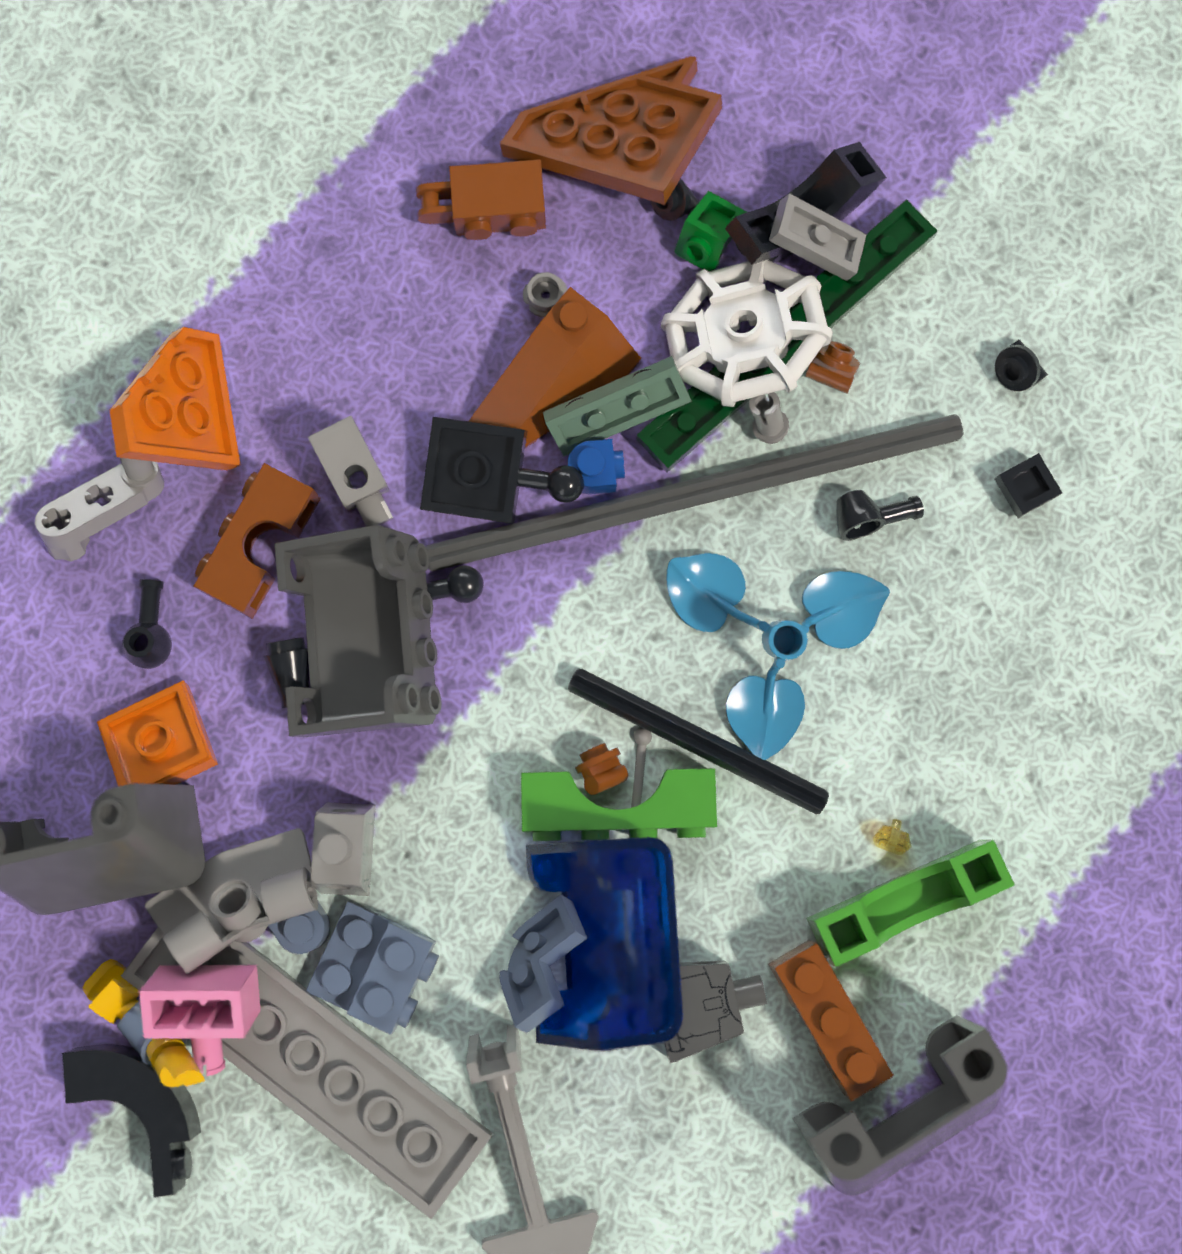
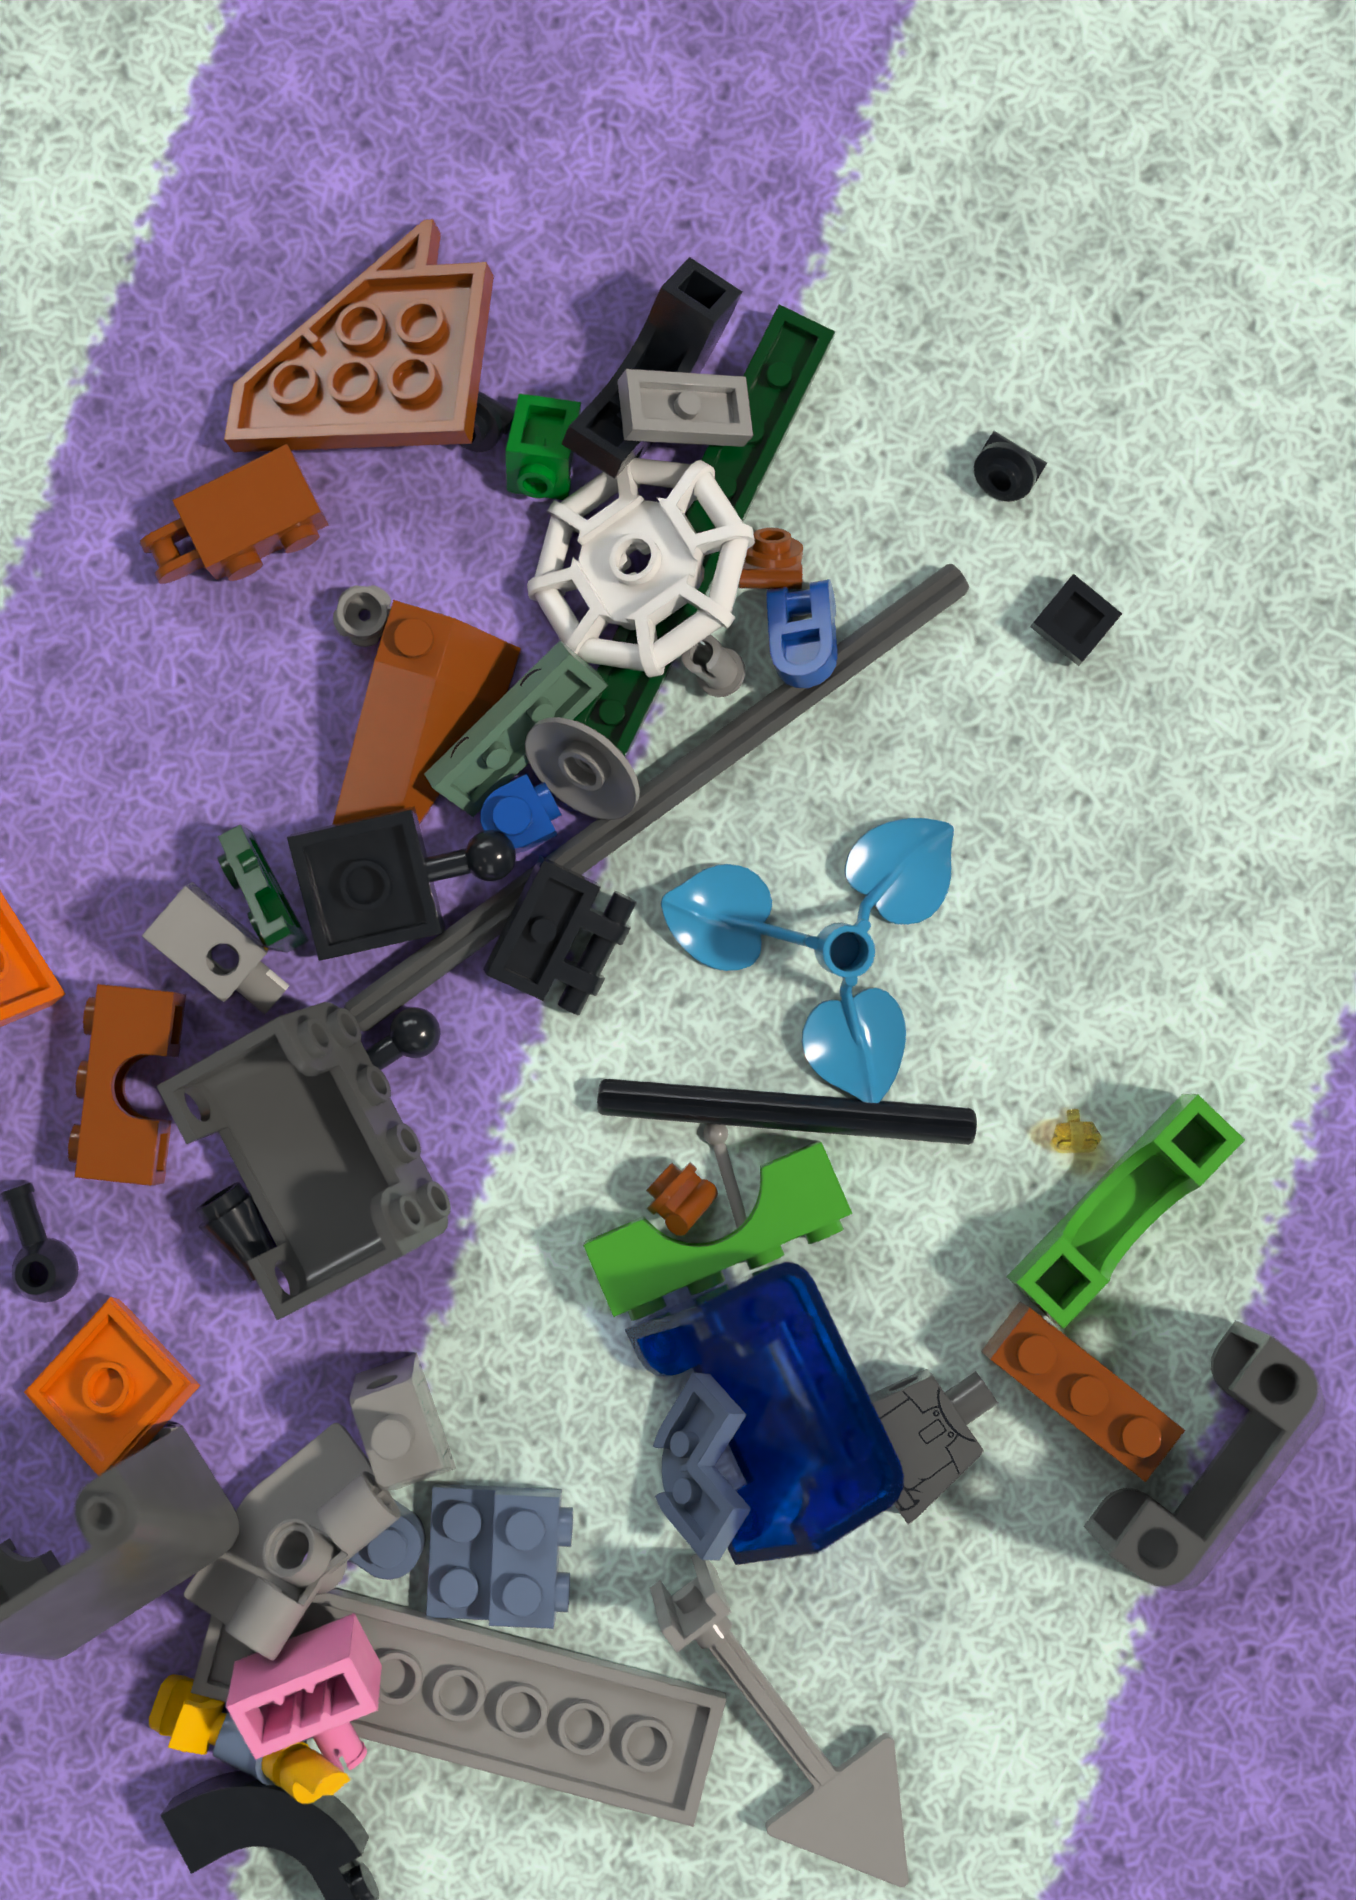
camera: 20 degrees left, 5 degrees up
(397, 430) = (270, 910): none -> dark green wing
(583, 546) = (544, 928): none -> black plate
(652, 448) = (582, 768): none -> light grey dish
(837, 420) = (803, 649): none -> blue plate
(858, 508) = (879, 744): black bar -> none

